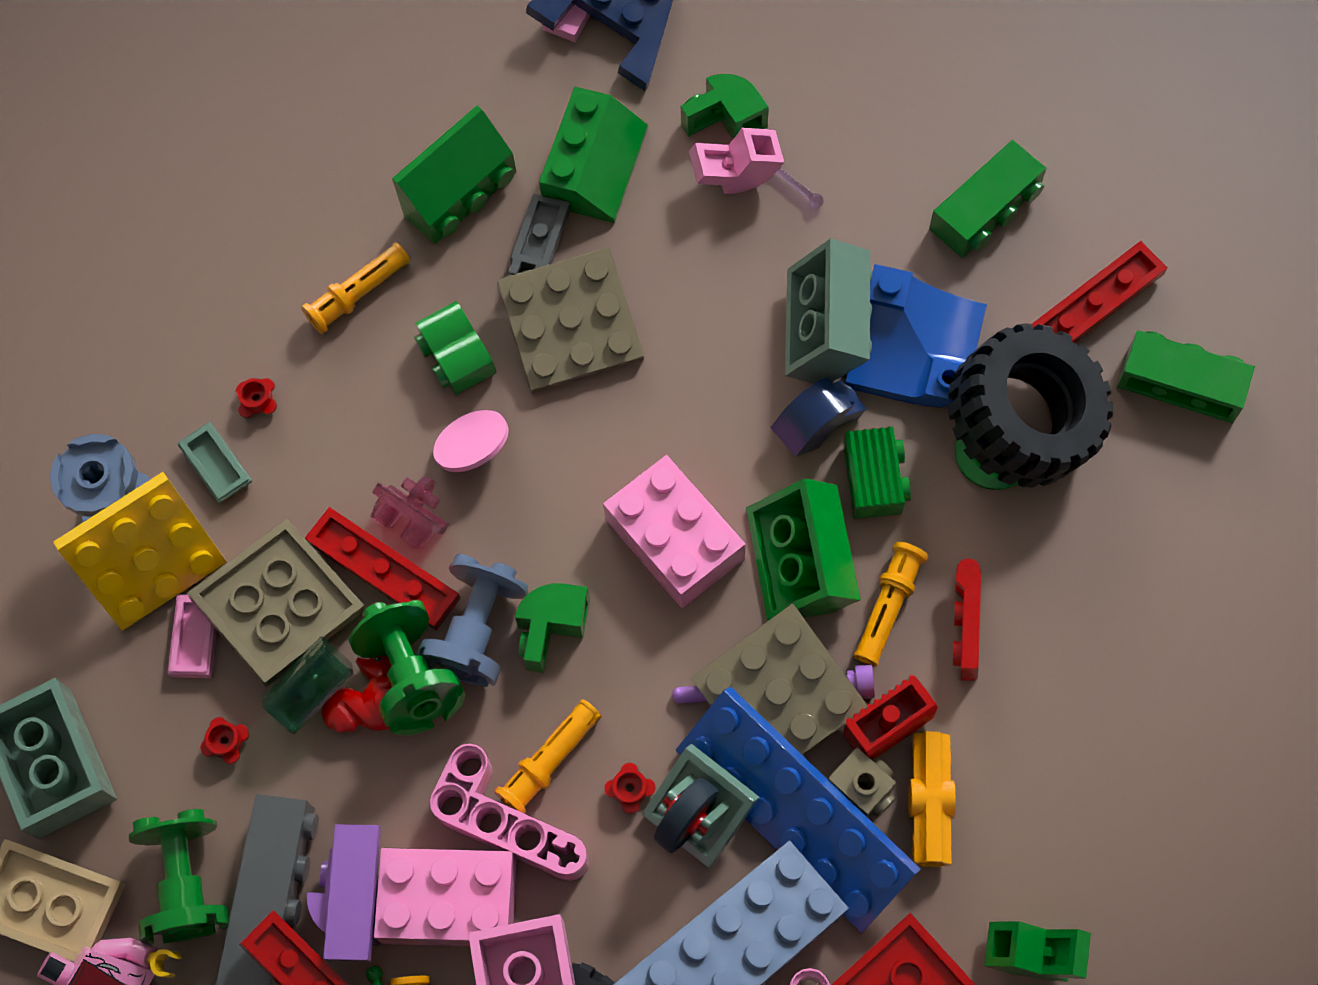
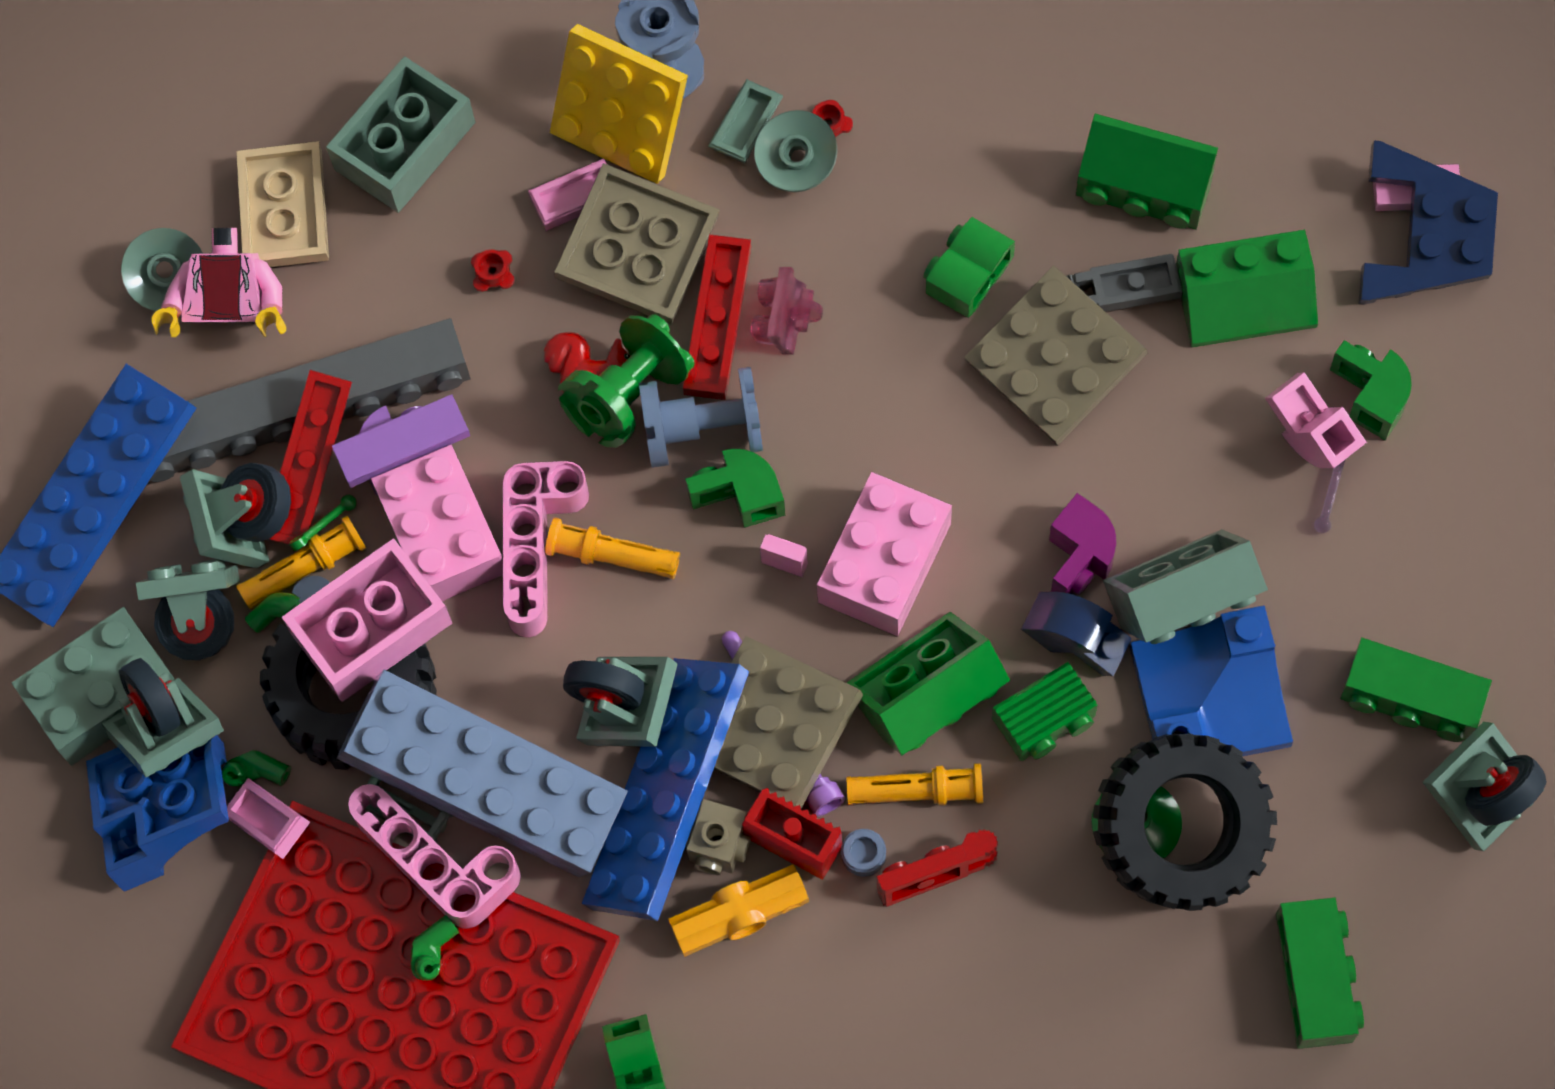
camera: 65 degrees right, 0 degrees up
(181, 893) = (336, 303): green piece -> none
(265, 414) = (790, 133): none -> sand green dish
(307, 685) = (570, 308): clear green brick -> none
(341, 297) = (967, 141): light orange pin -> none
(470, 441) = (880, 328): bright pink piece -> none
(617, 788) = (615, 624): red plate -> none
(631, 613) = (784, 555): none -> bright pink tile
(746, 369) = (1089, 540): none -> magenta brick
(927, 669) = (863, 852): none -> sand blue tile
(1100, 180) = (1485, 785): none -> sand green plate
(1105, 293) = (1358, 849): red plate -> none

